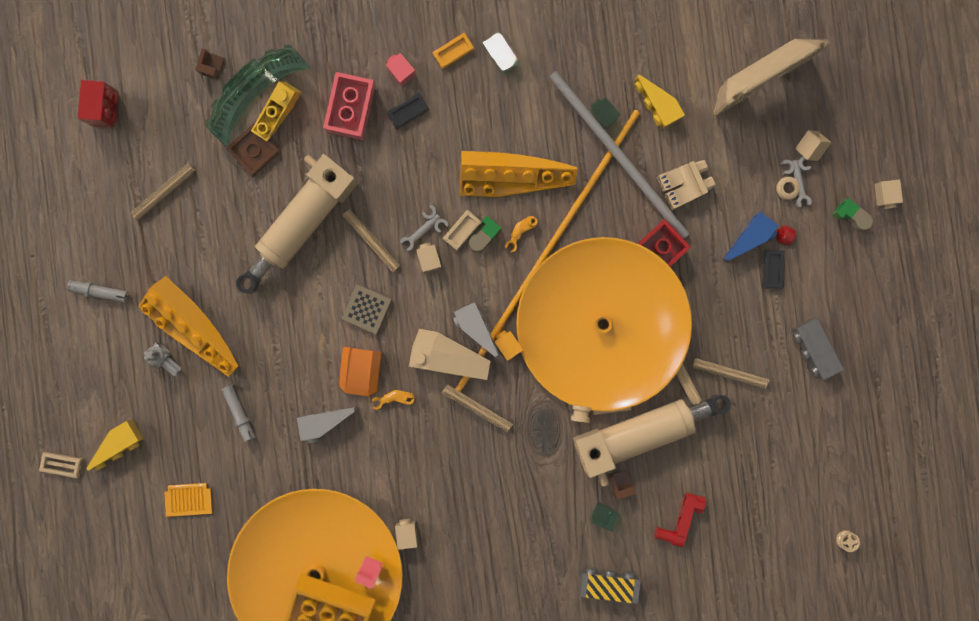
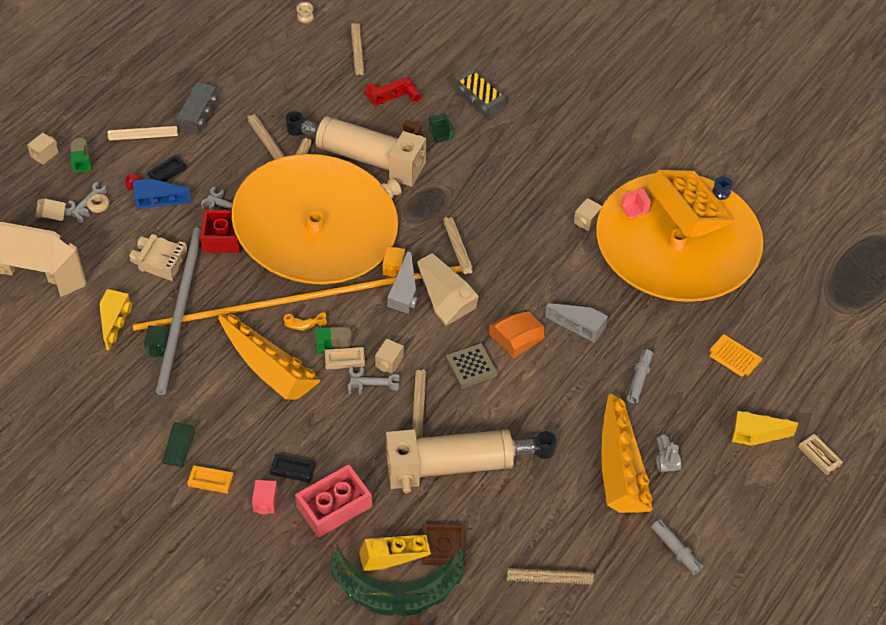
camera: 130 degrees left, 35 degrees down
(396, 395) = (508, 298): light orange arm -> none
(706, 276) = (216, 199): none -> light grey bar
(765, 545) = (357, 49): none -> tan axle
(832, 285) = (140, 133): none -> tan axle

